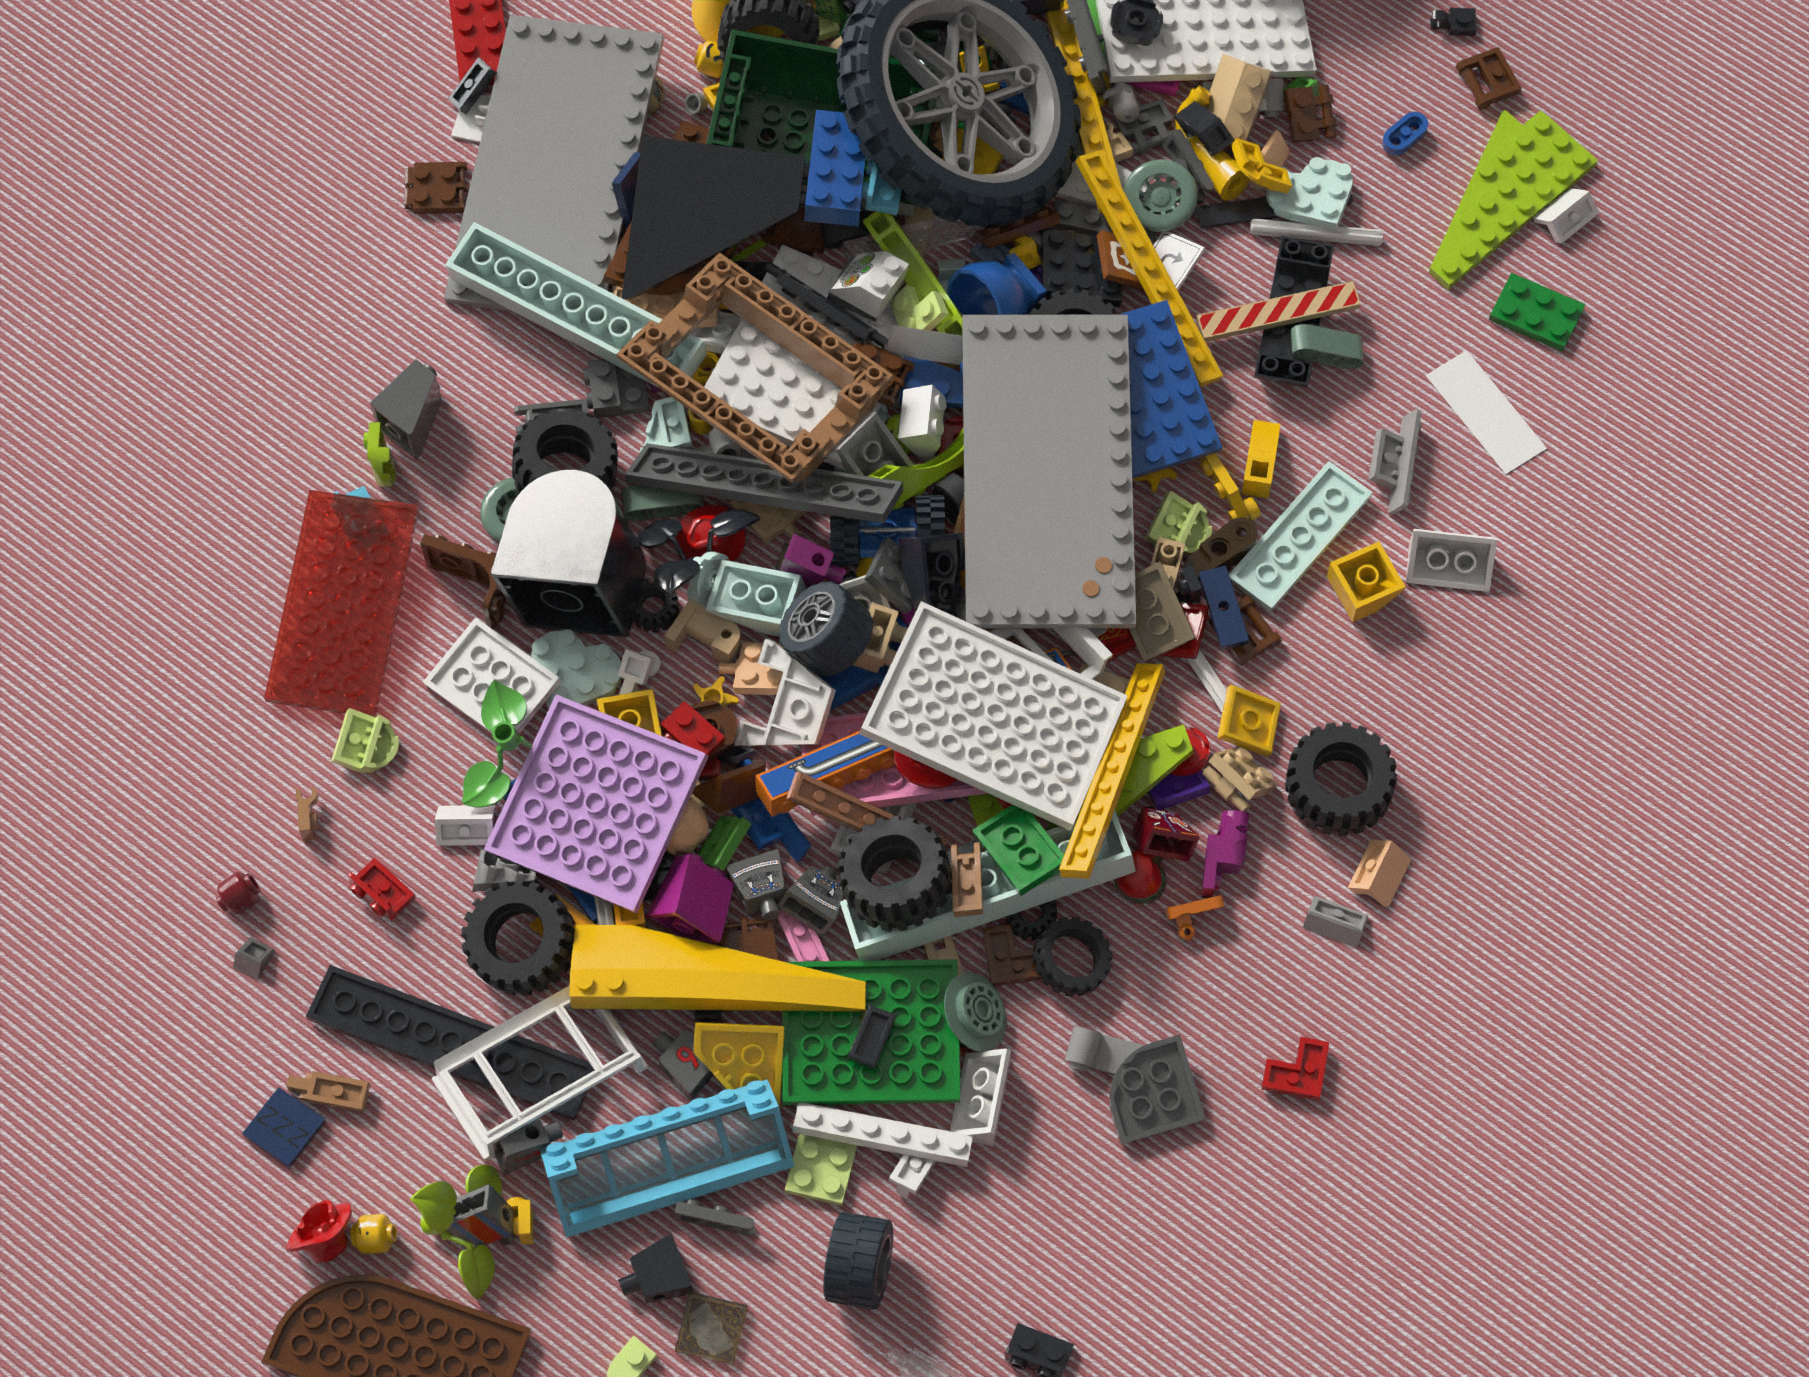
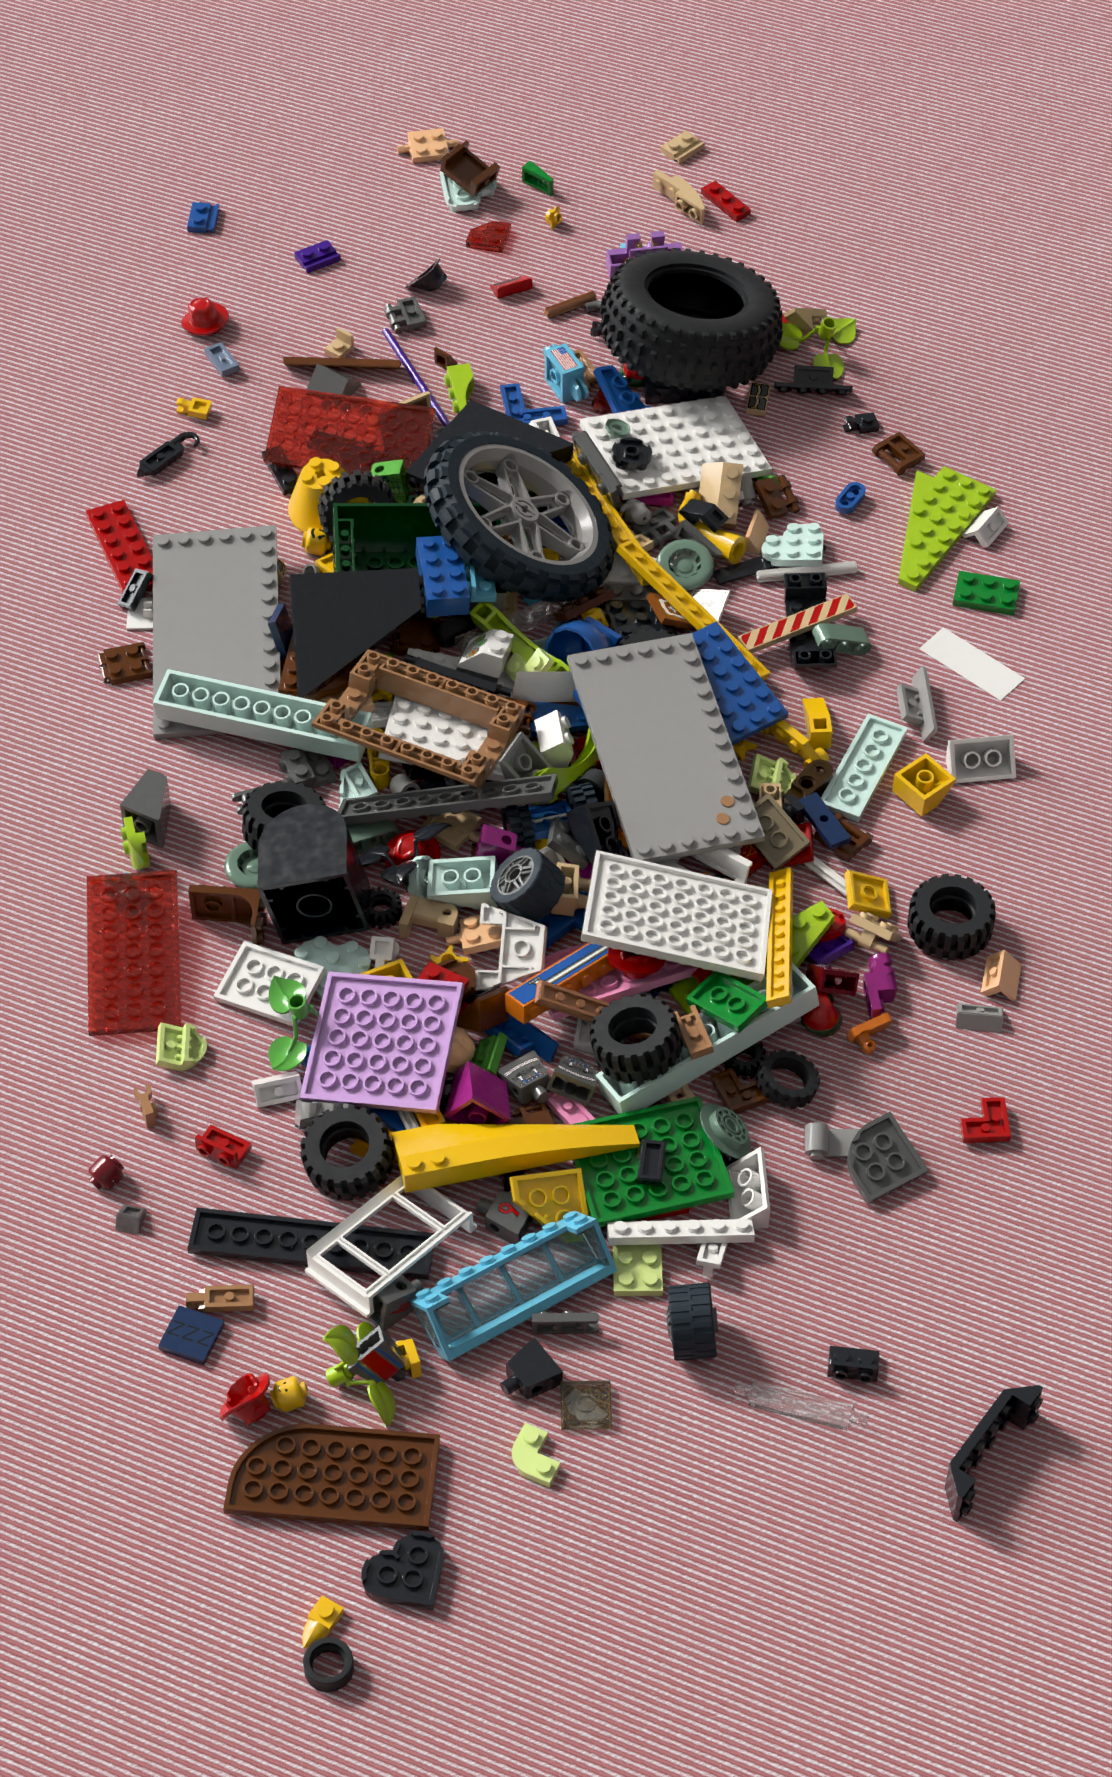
camera: 15 degrees left, 15 degrees down
(1253, 166) = (745, 528): yellow plate -> none

